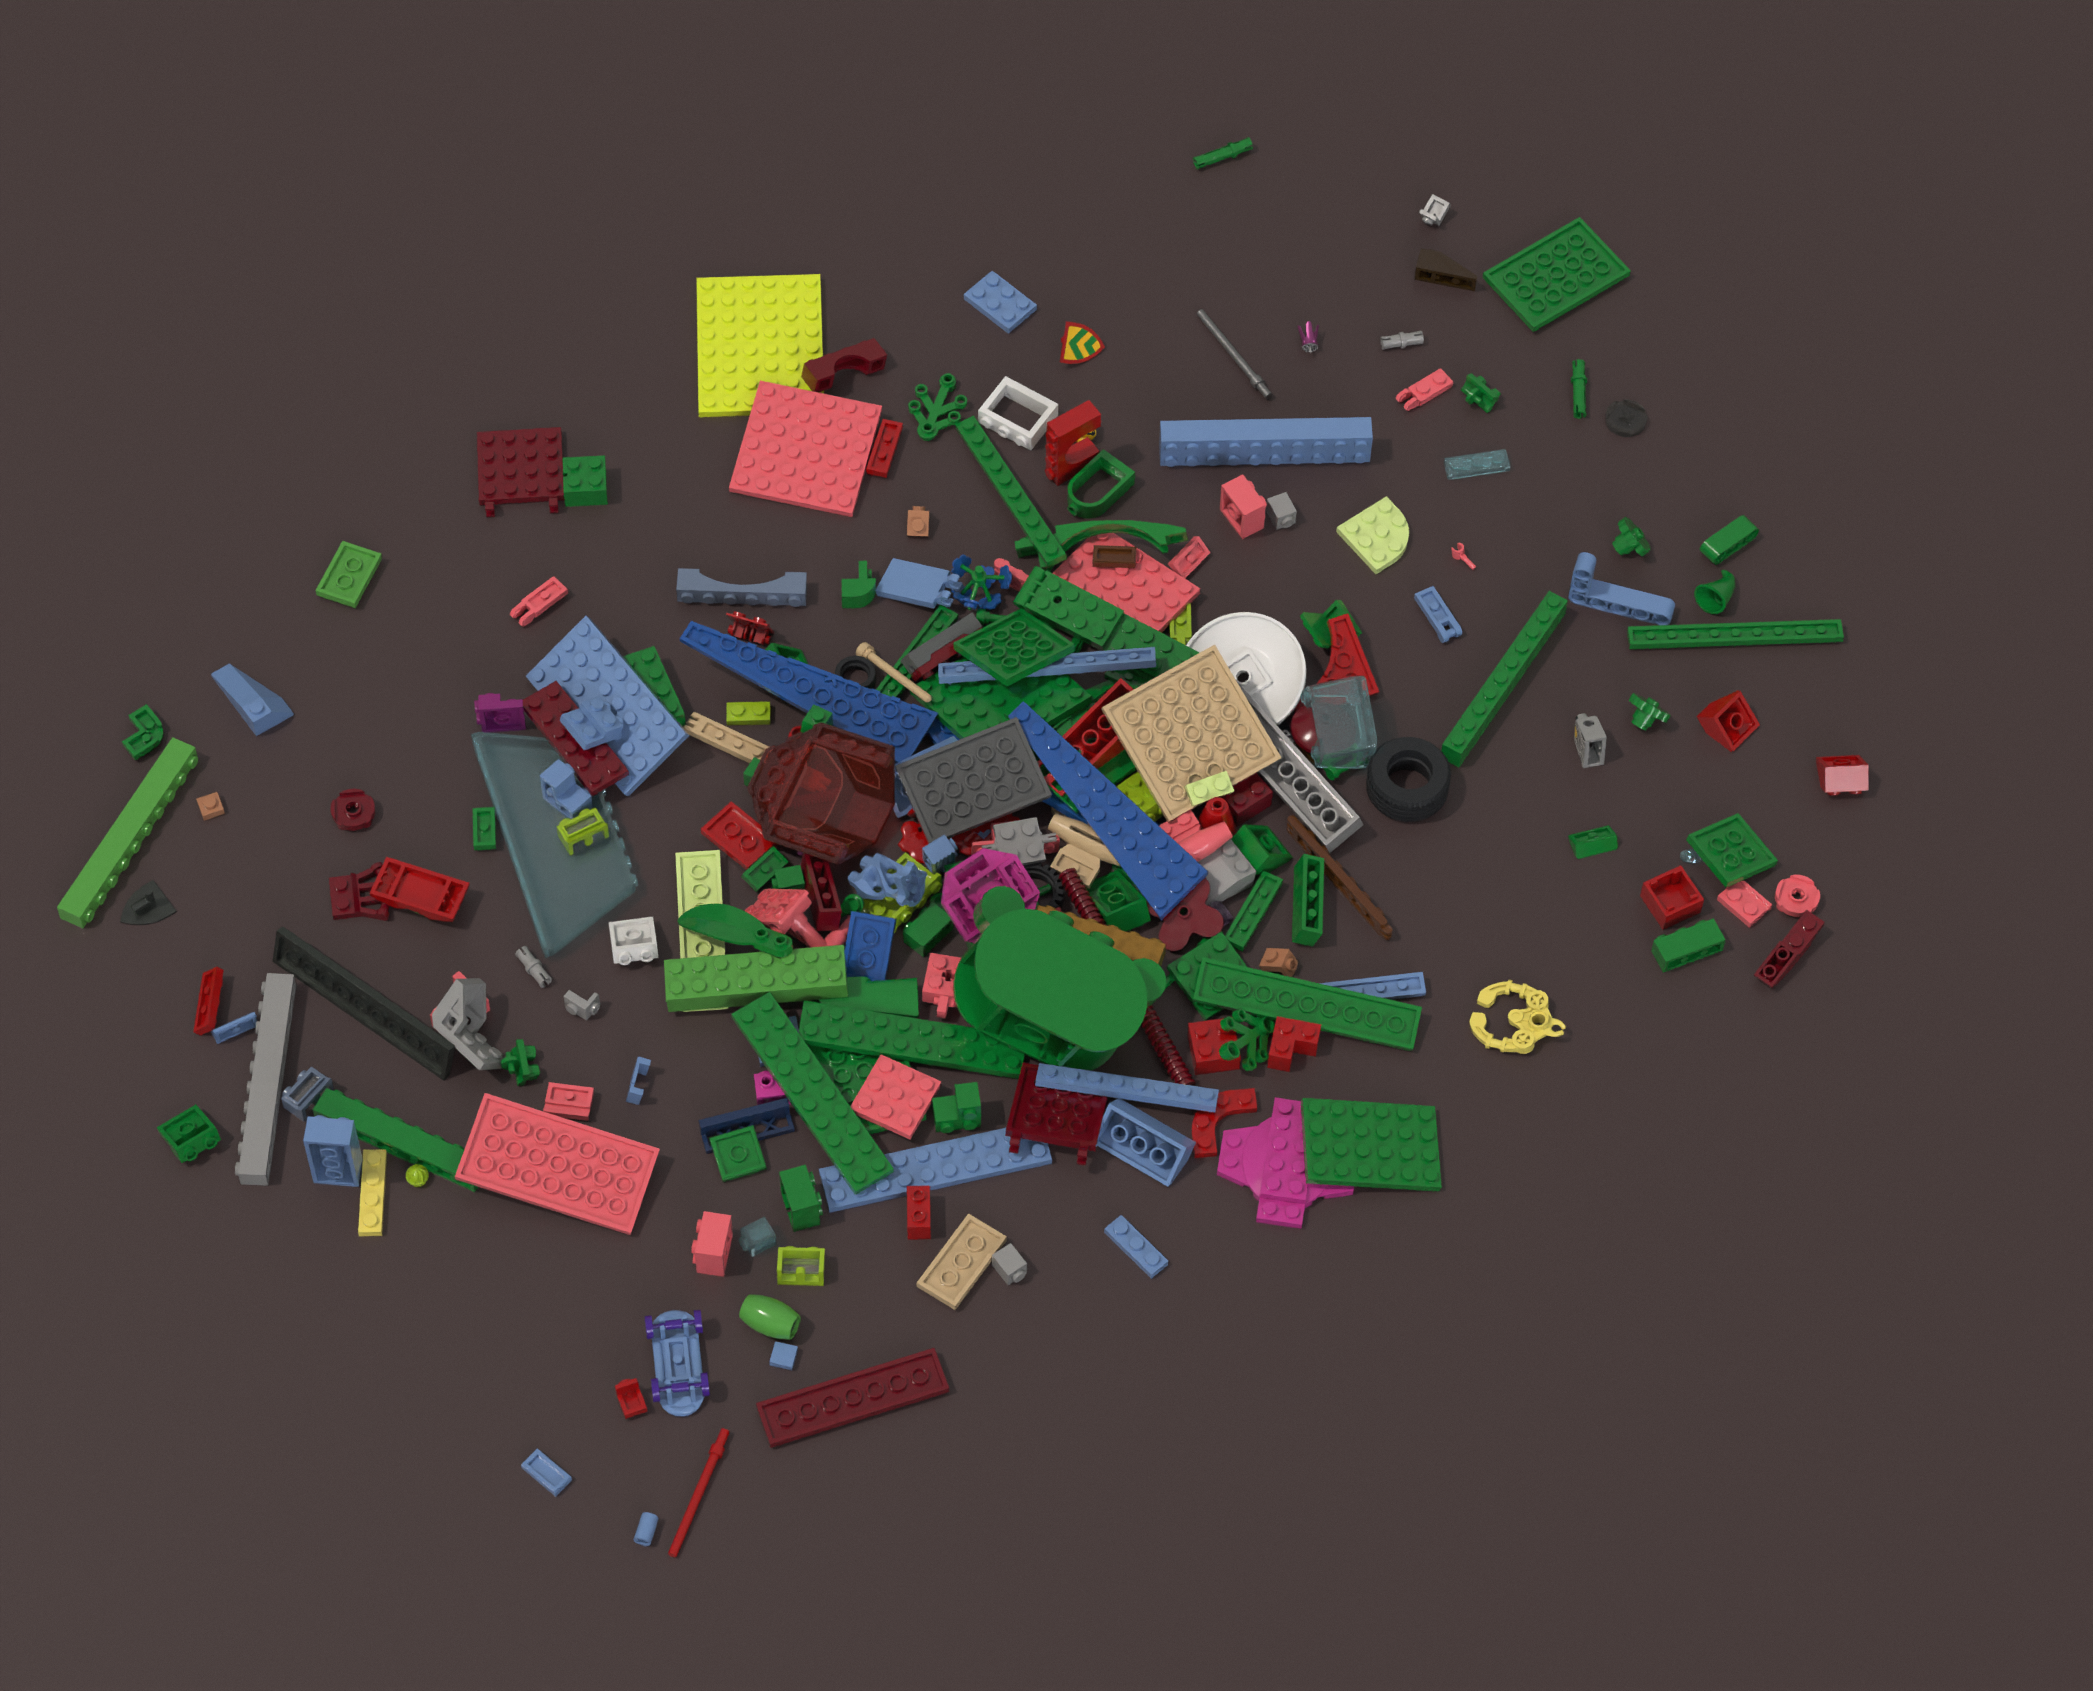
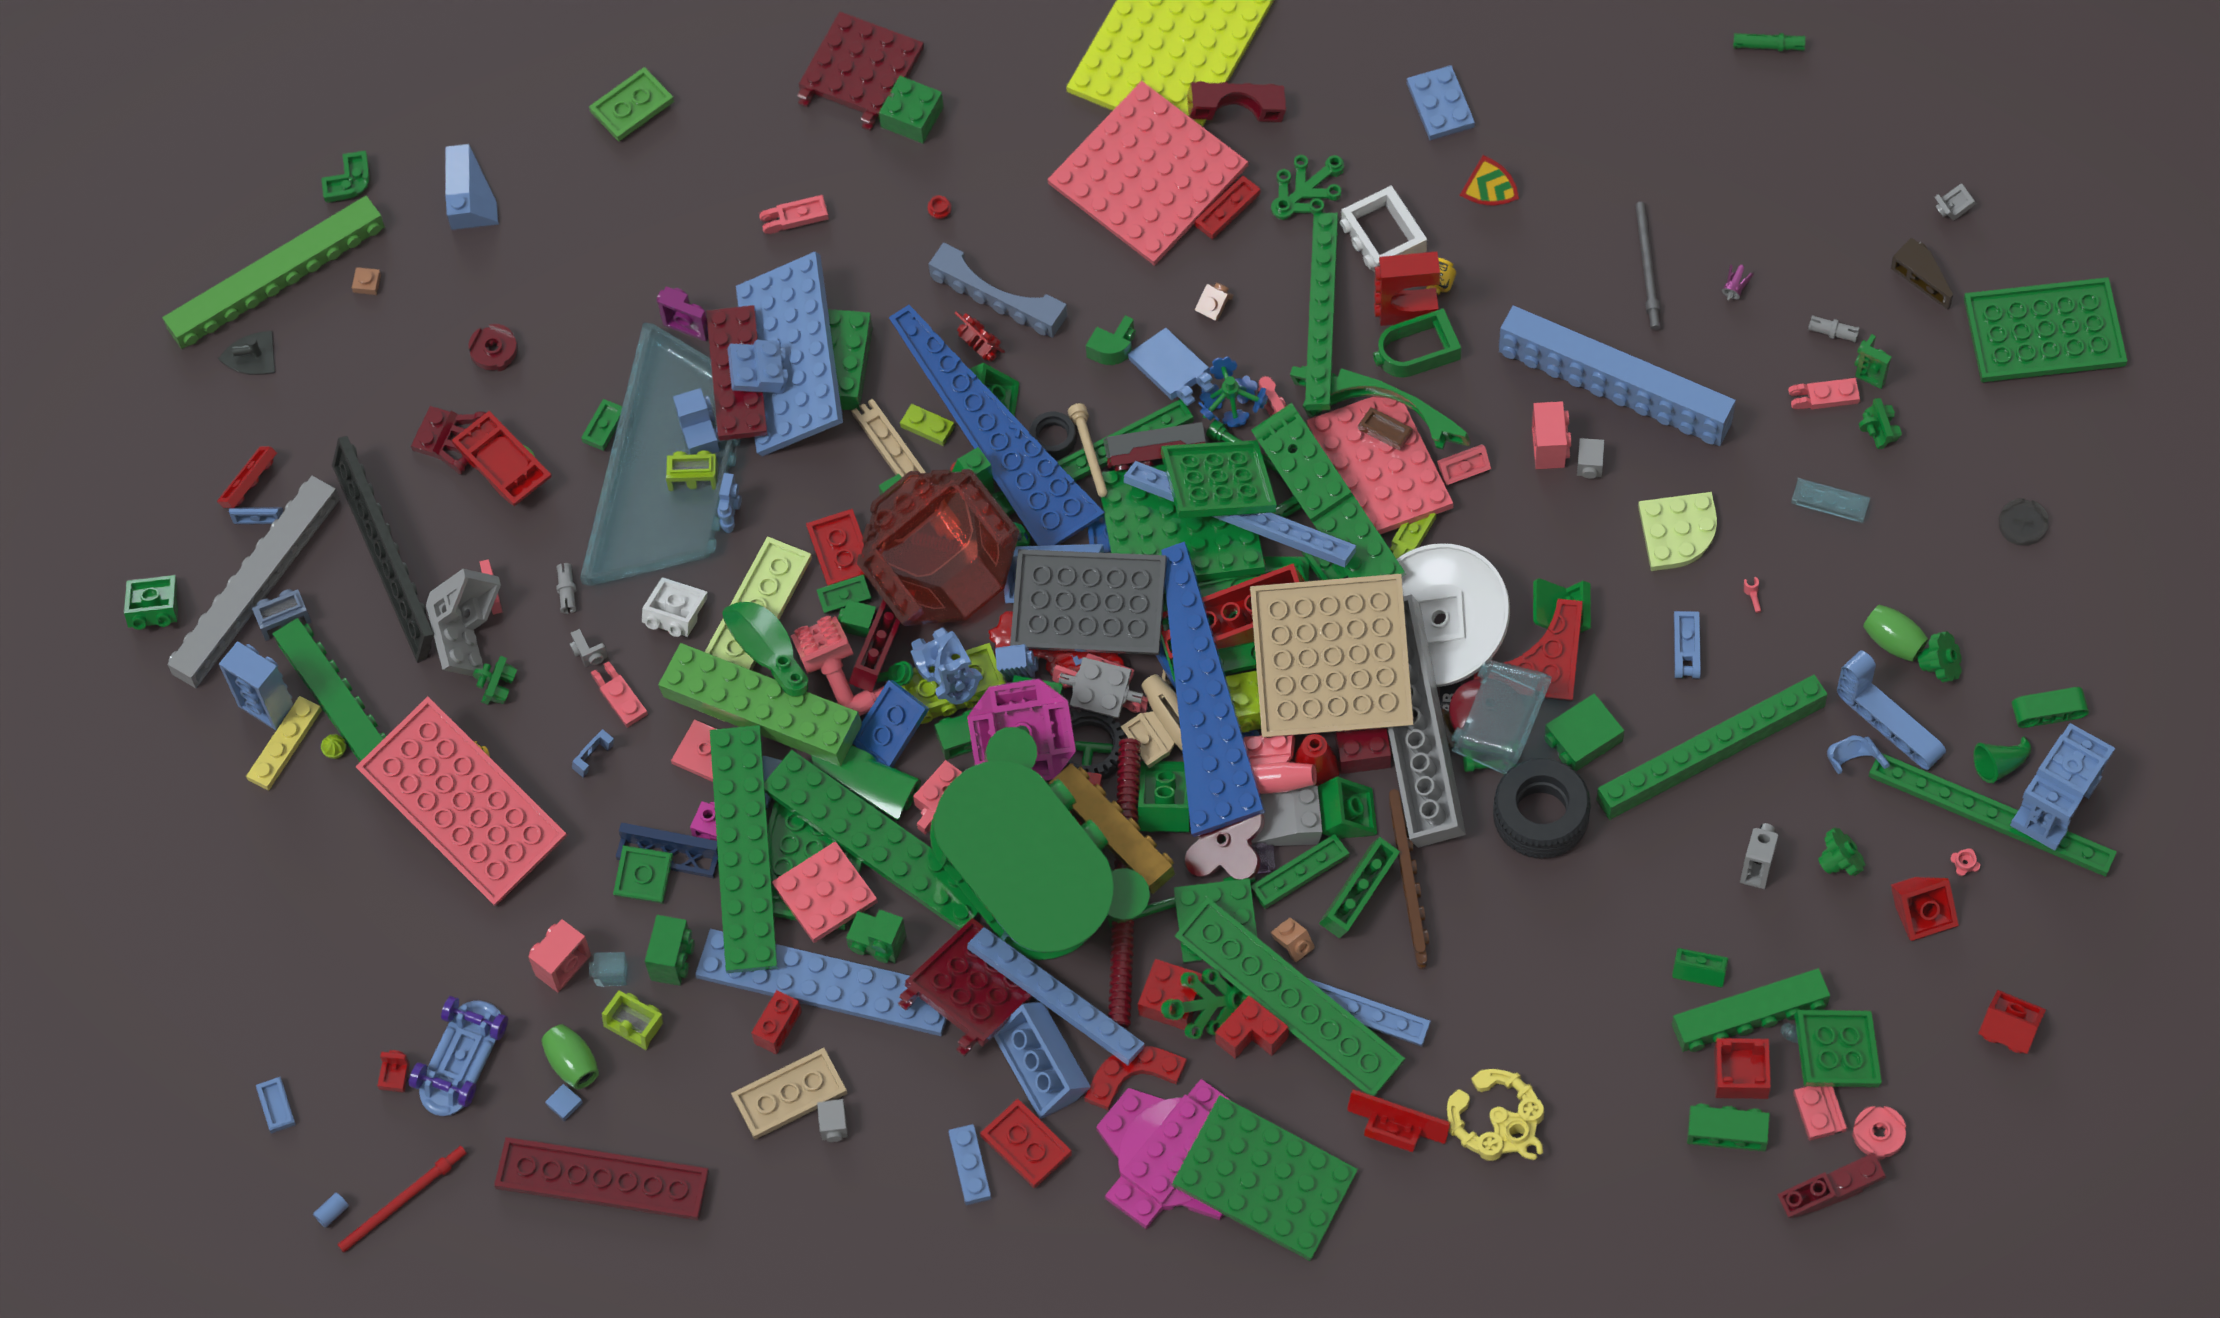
camera: 35 degrees right, 5 degrees up
(569, 1101) = (516, 741): coral plate -> none
(629, 1028) = (620, 696): none -> coral hinge
(631, 842) = (729, 502): none -> medium blue plate
(653, 545) = (939, 207): none -> red plate
(724, 1040) = (695, 751): none -> coral plate
(1171, 1209) = (1026, 1143): none -> red plate
(1210, 787) = (1319, 722): yellowish green plate -> none
(1403, 710) = (1583, 733): none -> green brick
(1442, 1058) = (1396, 1123): none -> red bracket
(1449, 351) = (1872, 363): none -> green bracket
(1579, 383) = (1995, 458): green pin -> none
(1587, 536) = (1895, 633): none -> bright green piece
(1606, 632) = (1851, 748): none -> medium blue helmet
(1651, 854) = (1750, 1010): none -> green brick
(1737, 671) = (1970, 857): none -> coral plate
(1780, 587) = (2061, 782): none -> medium blue piece

